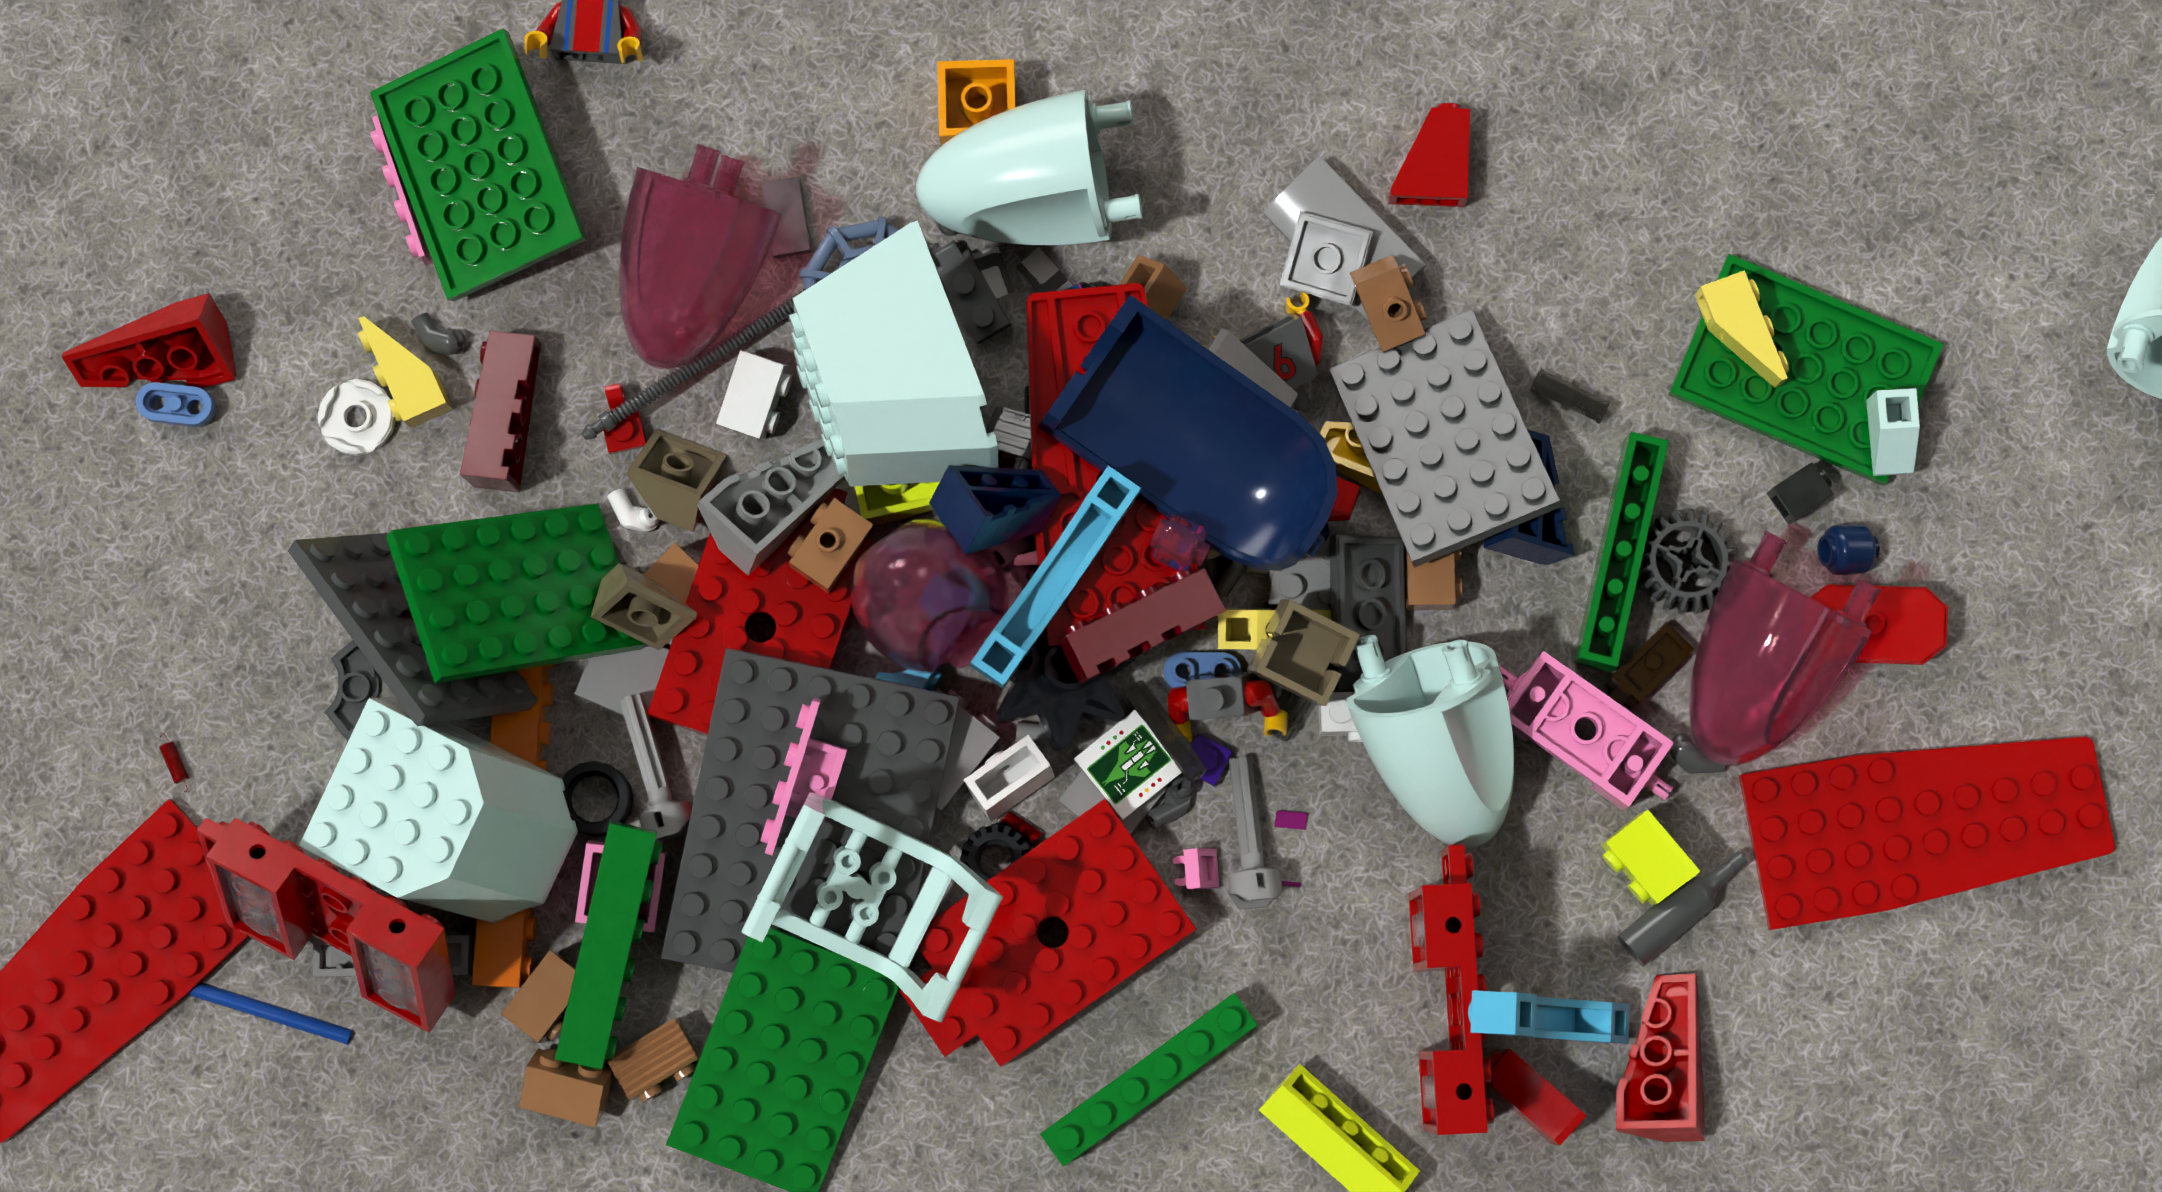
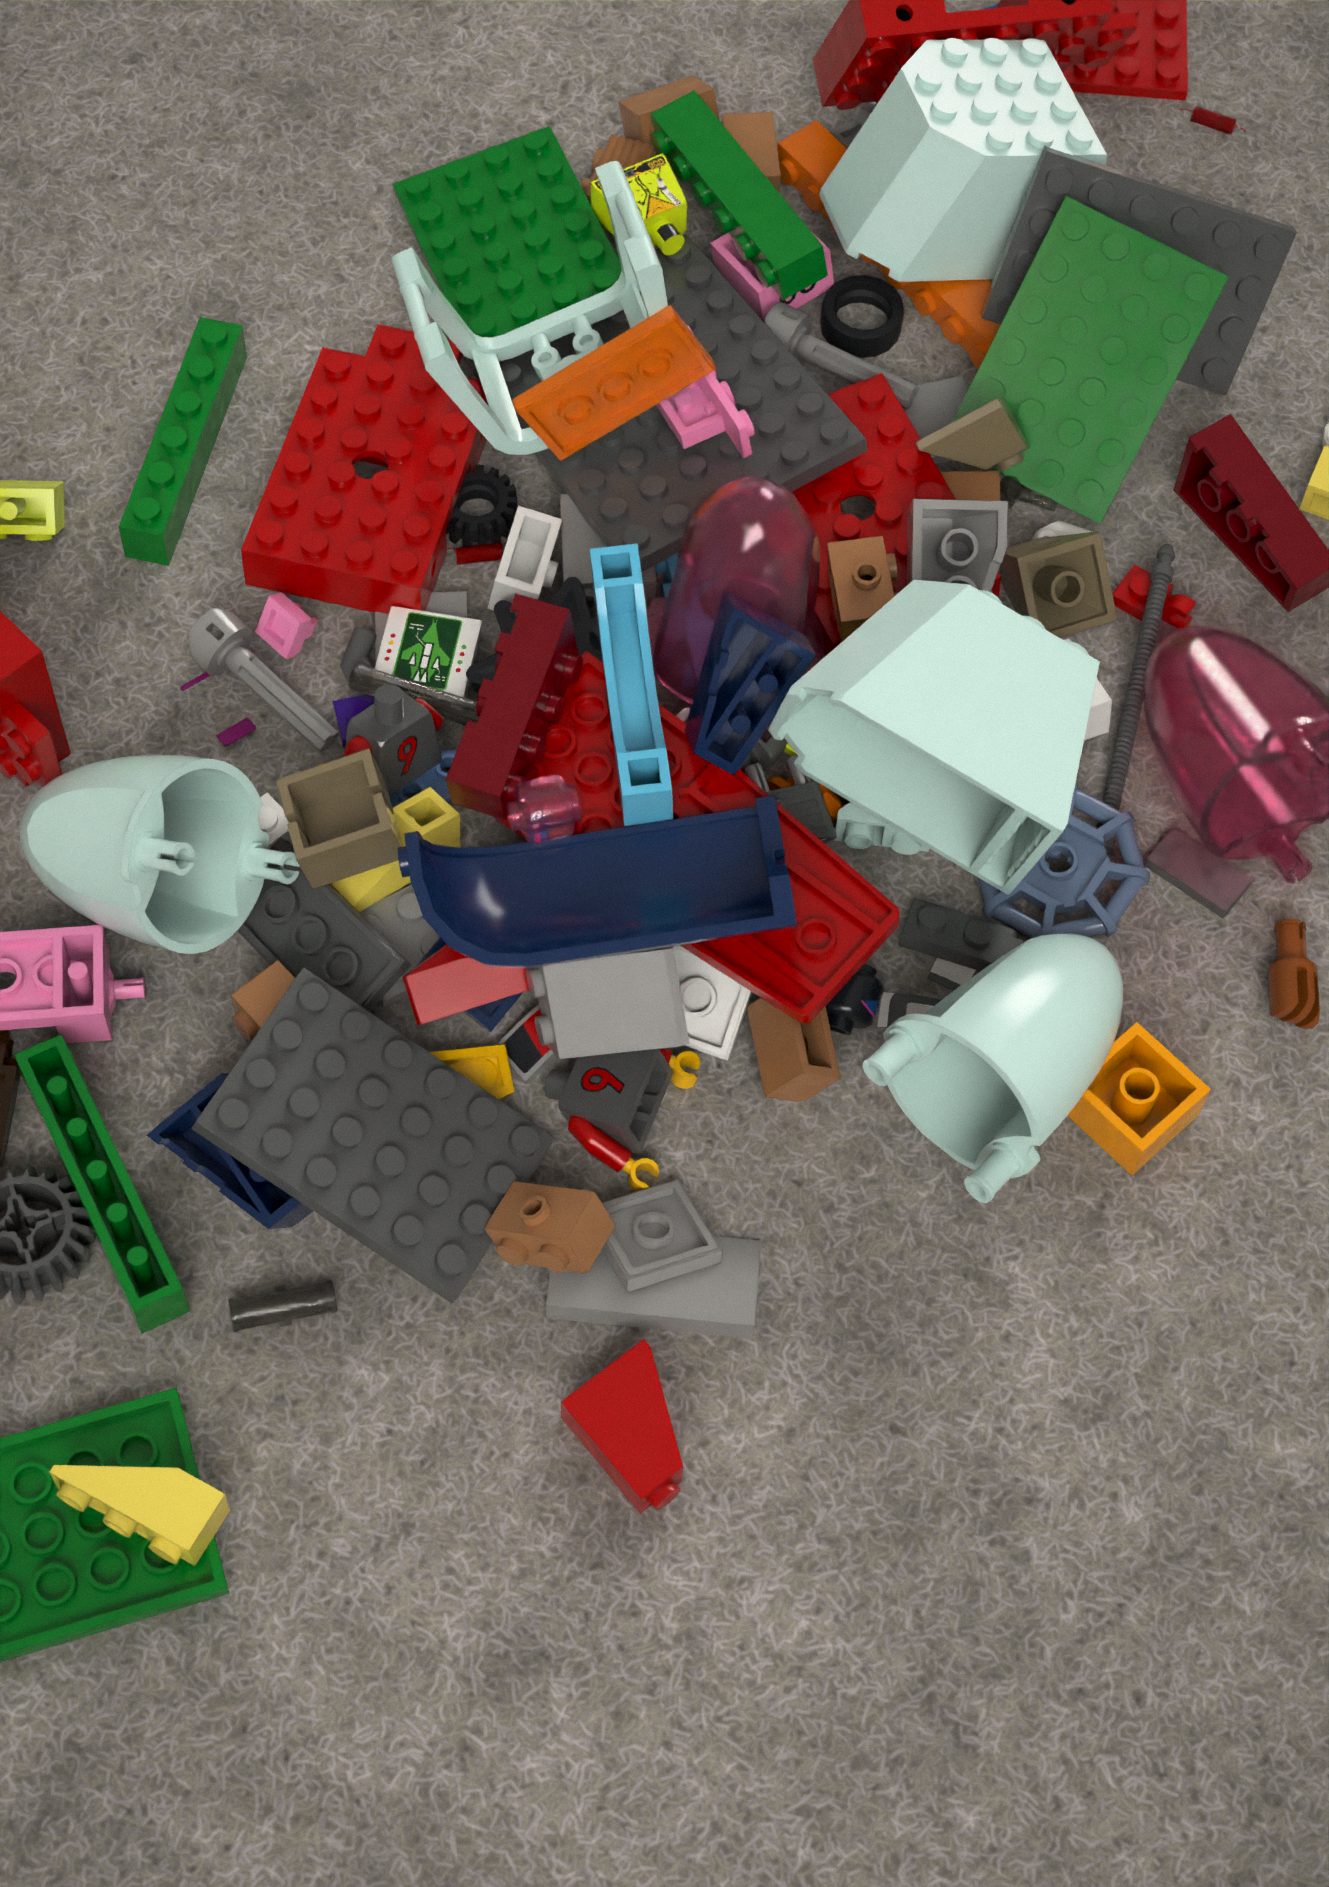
camera: 130 degrees right, 20 degrees down
(677, 993) = (658, 200): none -> neon yellow torso
(804, 102) = (1293, 978): none -> dark orange arm
(865, 812) = (614, 383): none -> orange tile

